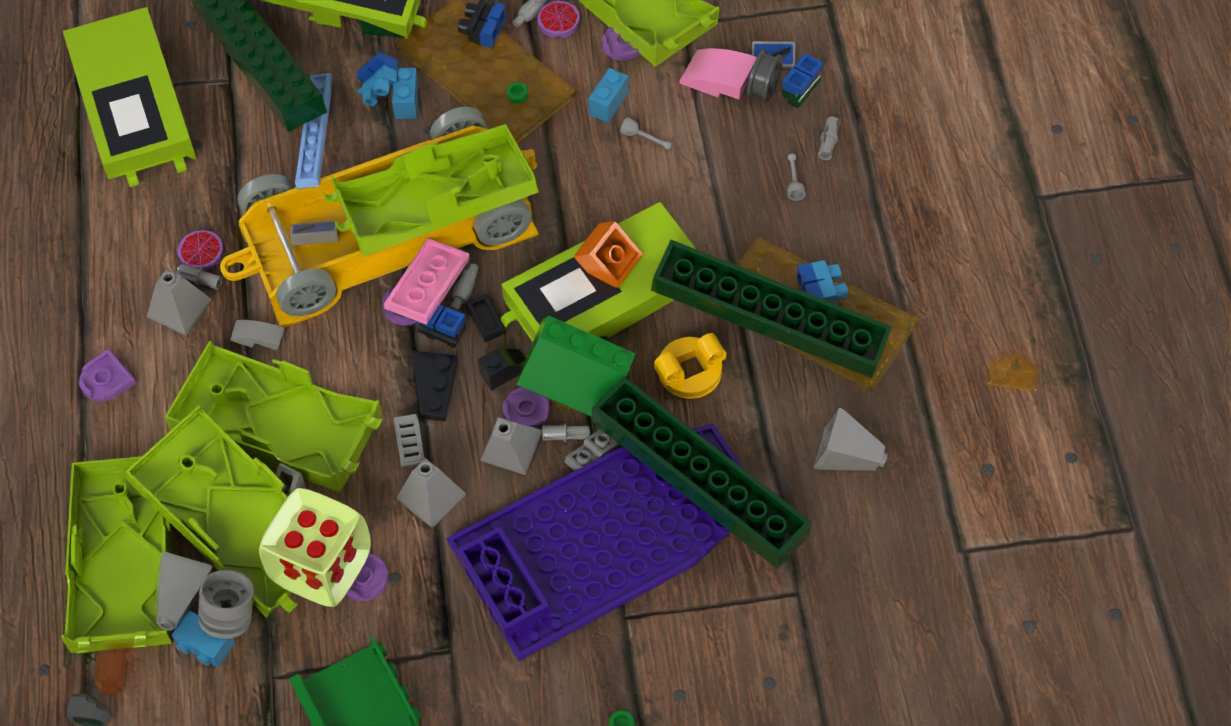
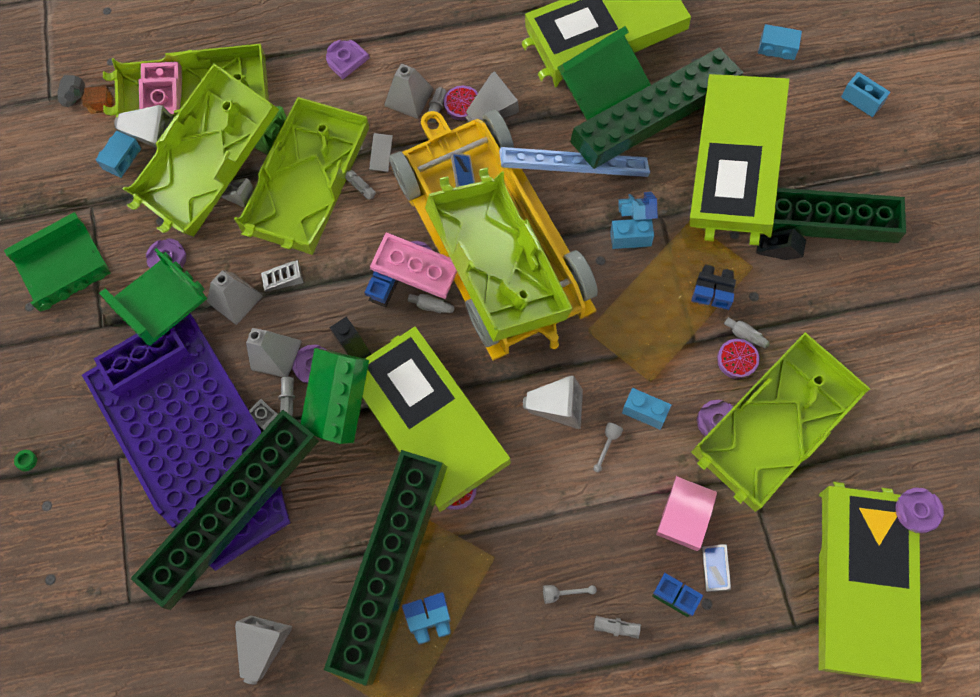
camera: 90 degrees right, 10 degrees up
(116, 586) = (160, 85): none -> bright pink slope
(209, 95) = (604, 74): none -> green panel
(214, 208) = (493, 96): none -> light grey slope
(225, 604) = (124, 146): light grey wheel -> none
(301, 355) = (360, 185): none -> light grey axle
(315, 547) = (154, 206): yellowish green piece -> none
(428, 563) = (157, 299): none -> green panel
(434, 382) = (338, 290): black wing -> none
(485, 318) = (402, 323): black tile -> none
(517, 93) = (638, 326): green tile -> none
(597, 167) = (557, 402): none -> slope
(608, 254) = (441, 412): orange slope -> none
(708, 353) = (337, 482): yellow piece -> none
(764, 75) = (679, 557): dark grey wheel -> none

